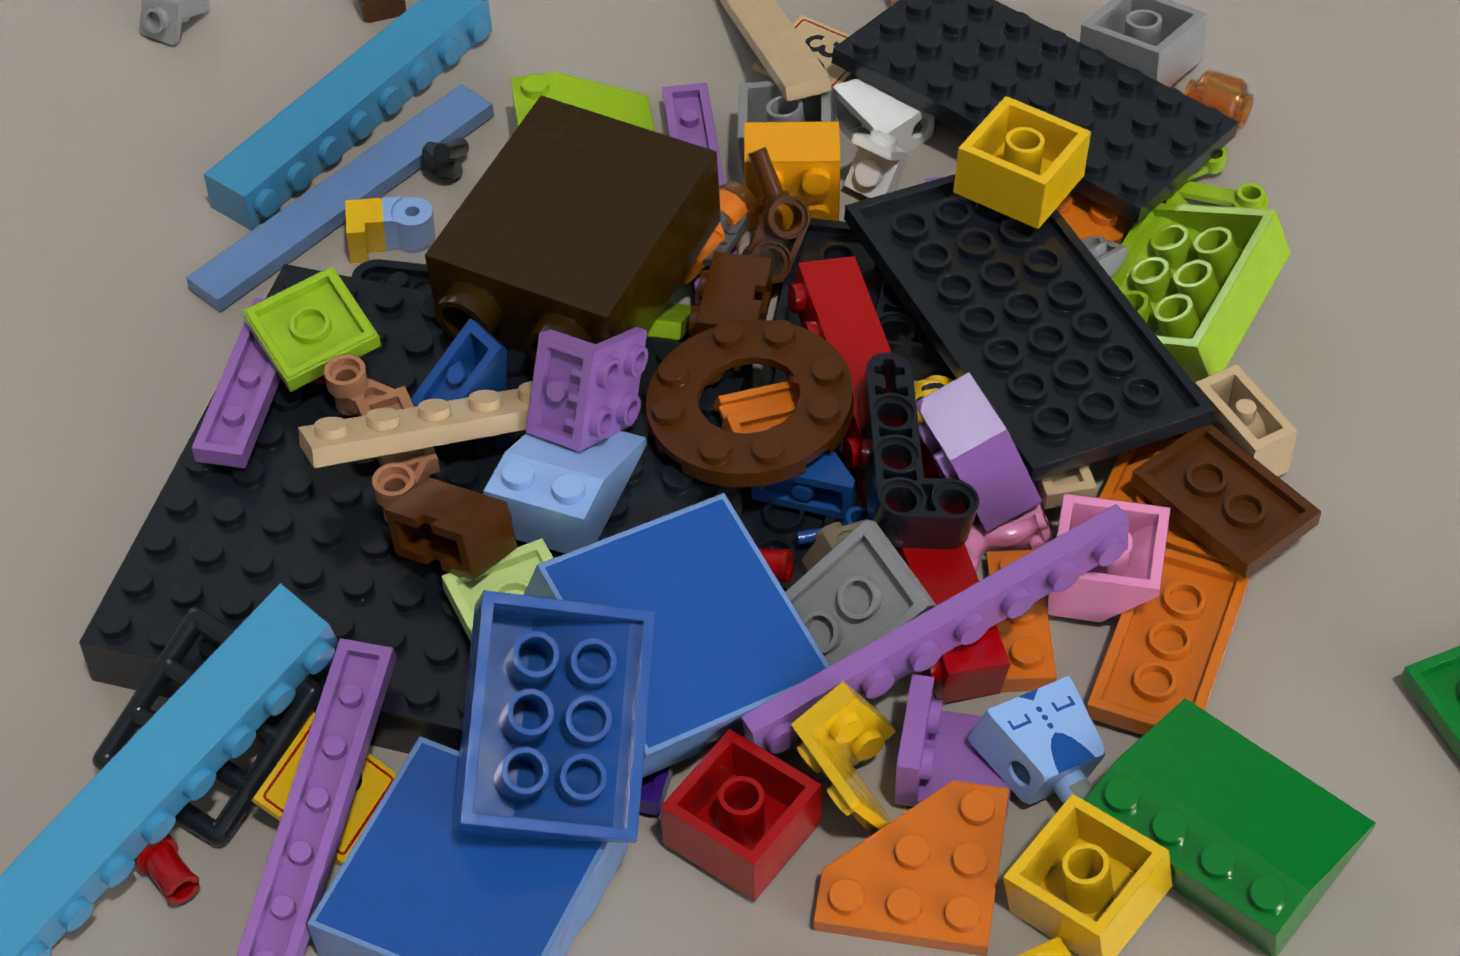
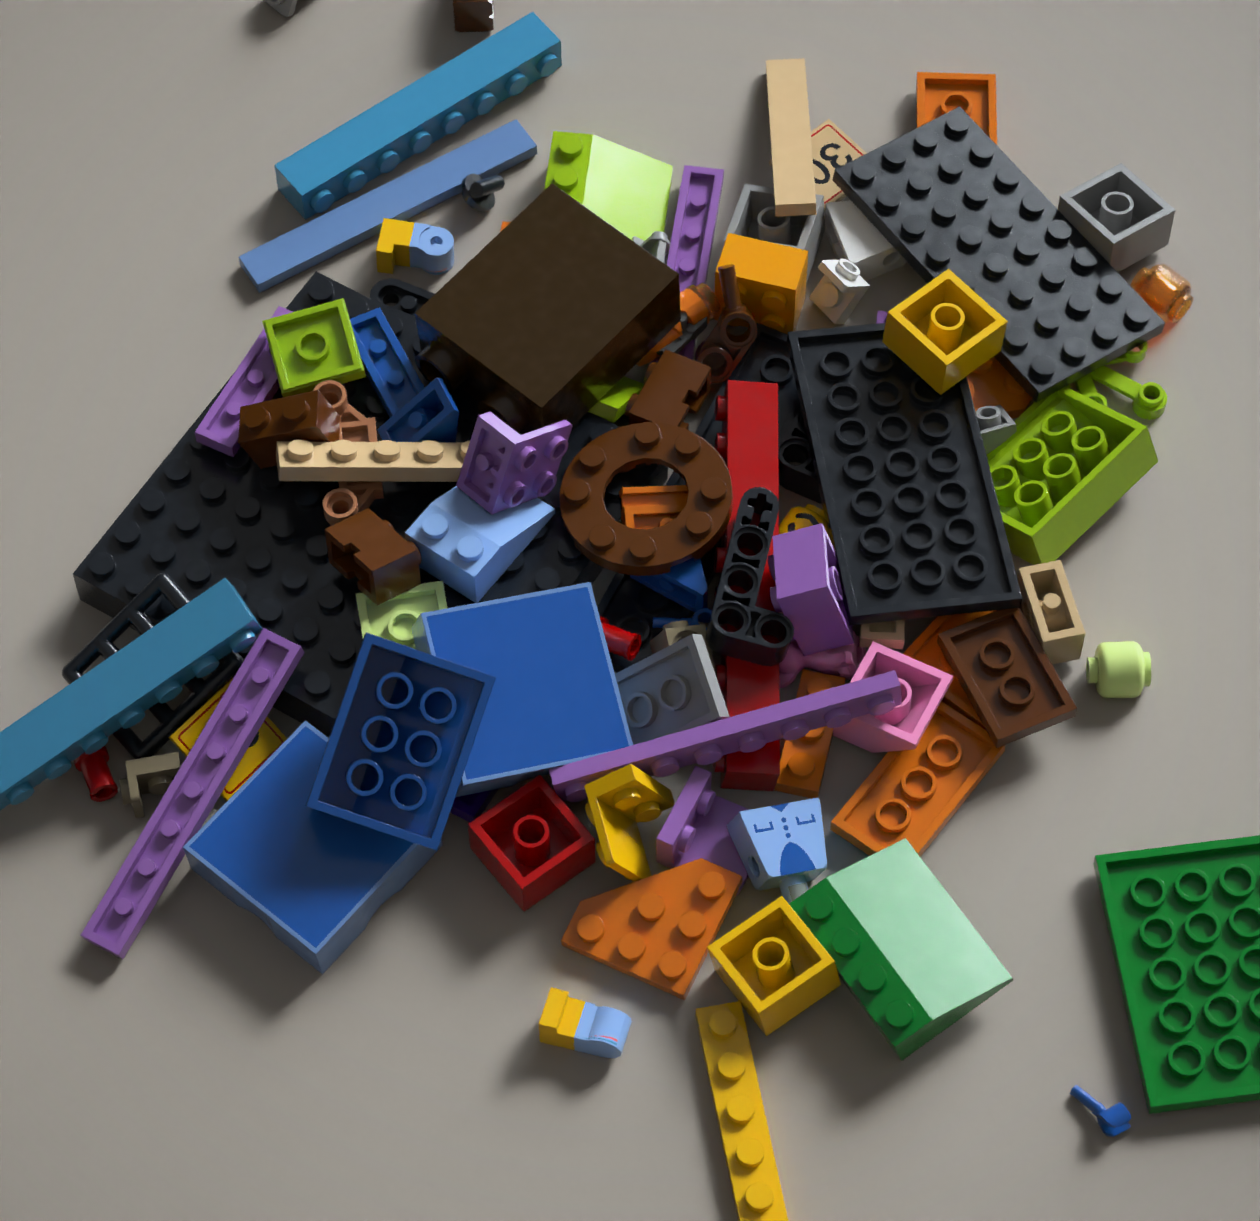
camera: 15 degrees right, 10 degrees up
(237, 856) = (148, 776): none -> dark tan bracket
(300, 402) = (288, 418): none -> reddish brown brick
(403, 333) = (385, 361): none -> blue plate
(1340, 469) = (1119, 669): none -> yellowish green head

